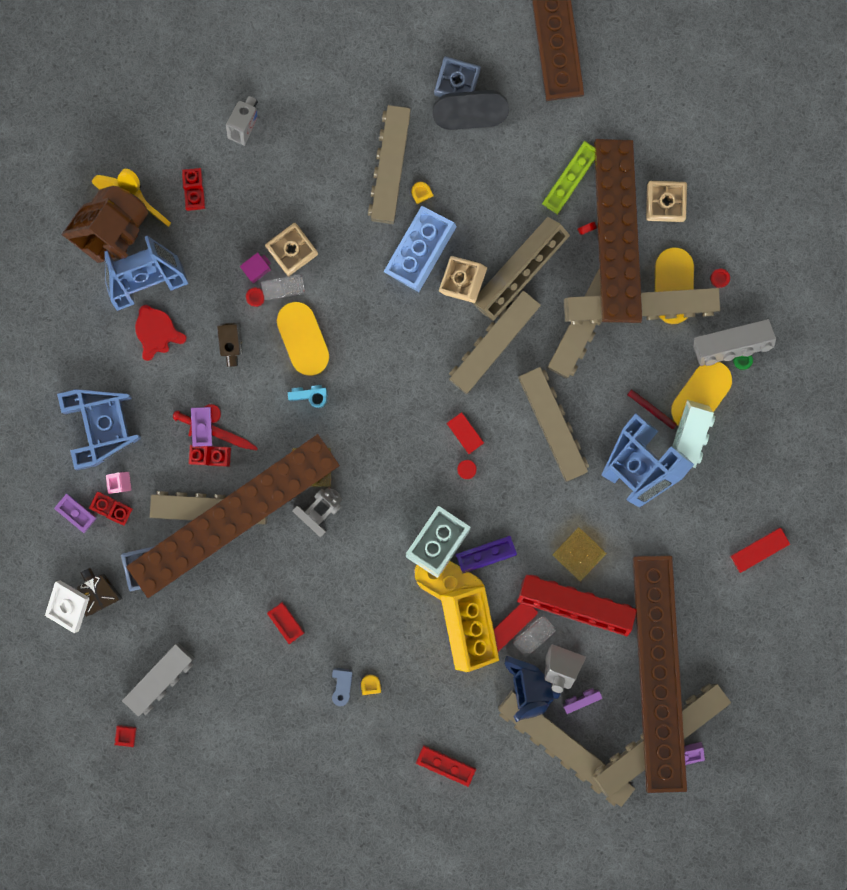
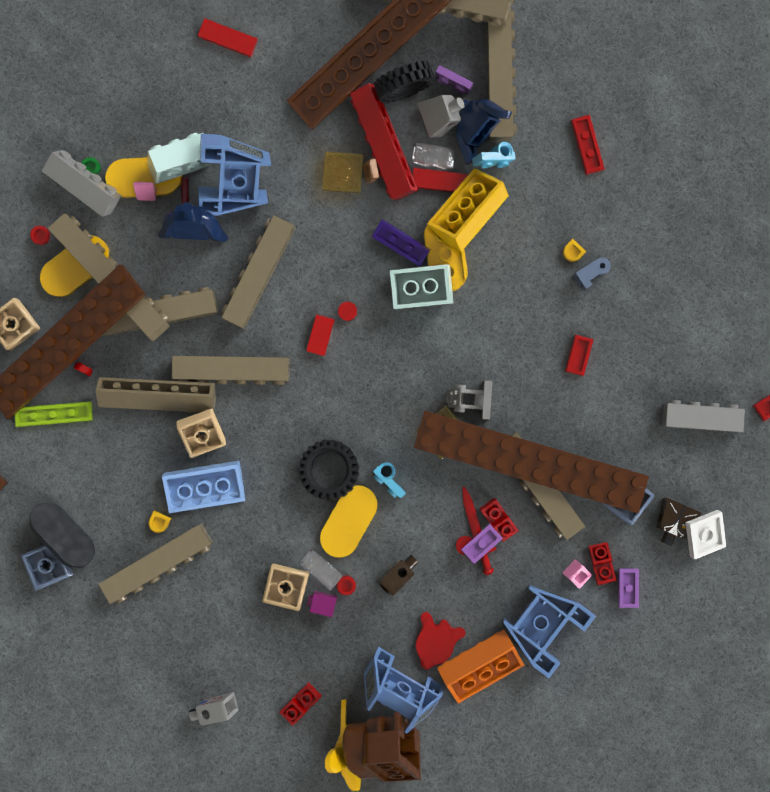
camera: 130 degrees left, 0 degrees up
(109, 350) = (480, 666): none -> orange slope
(354, 332) = (310, 456): none -> black tyre
(493, 683) = (499, 155): none -> medium azure plate
(562, 576) = (370, 171): none -> medium nougat tile
(610, 659) = (404, 81): none -> black tyre
(631, 402) = (191, 223): none -> dark blue torso
(687, 387) = (145, 191): none -> bright pink slope

